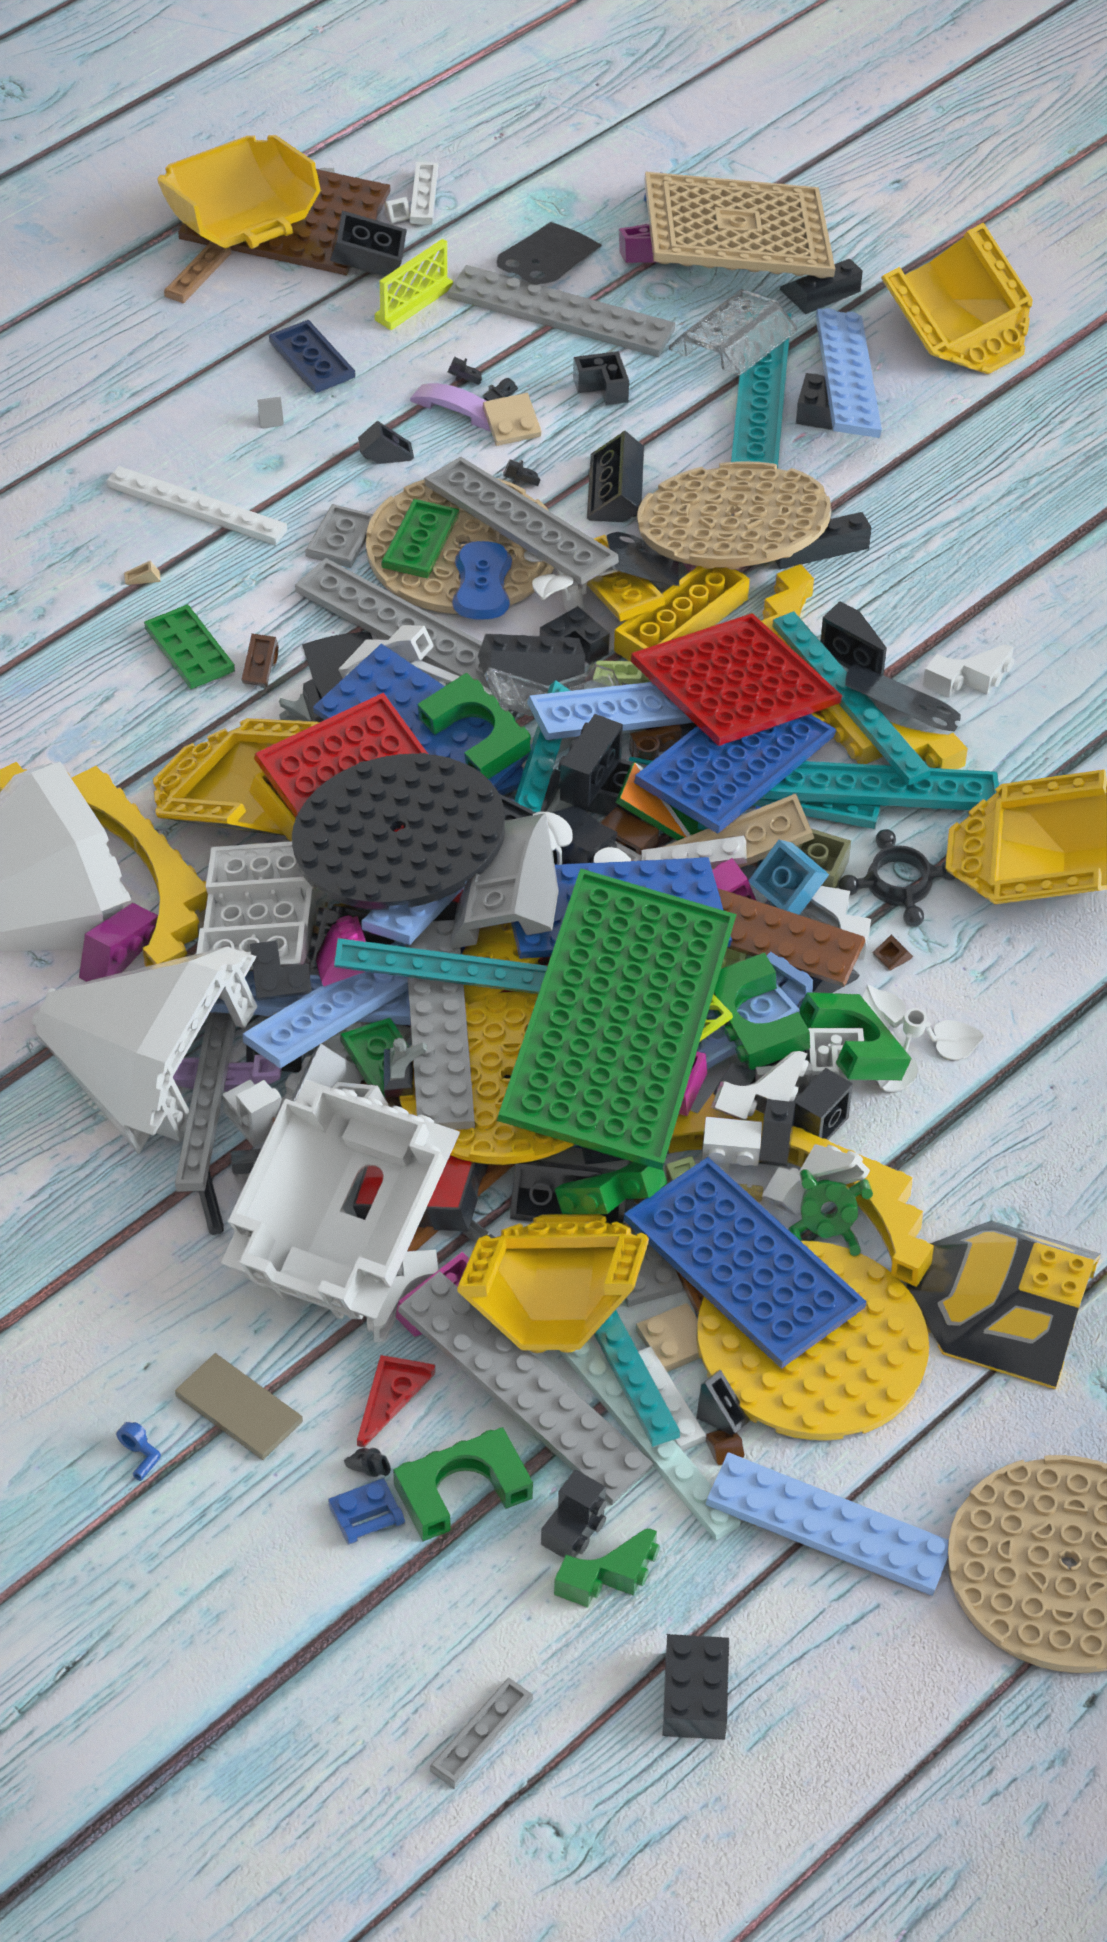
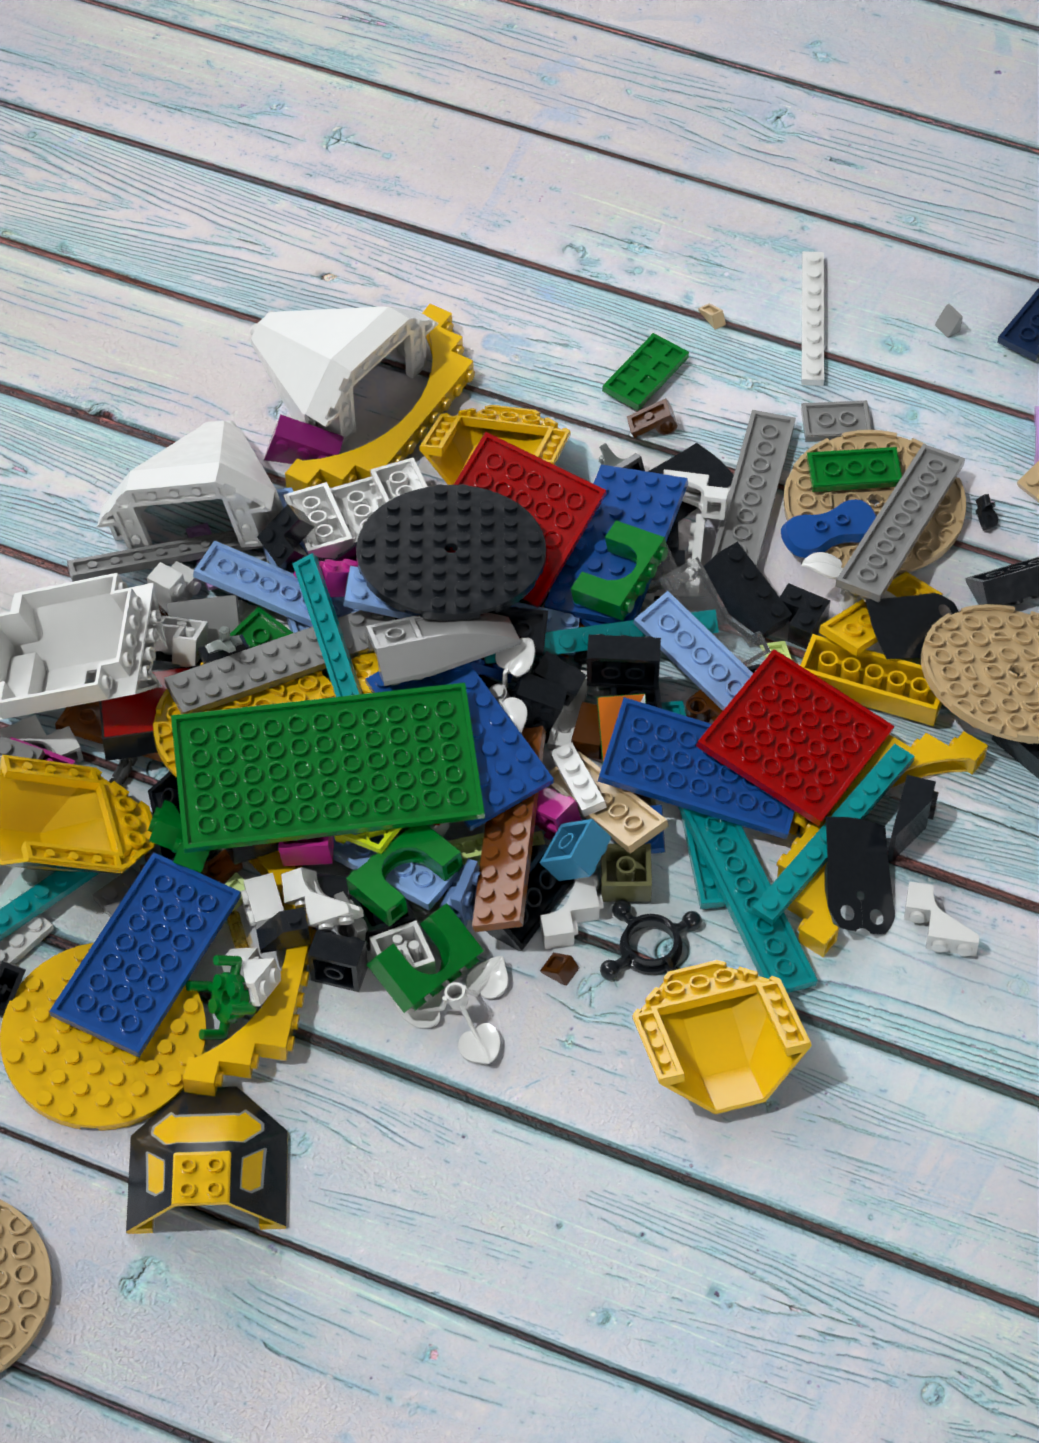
camera: 70 degrees right, 5 degrees up
(384, 445) = (958, 409): black slope -> none
(671, 1336) = (66, 933): tan plate -> none

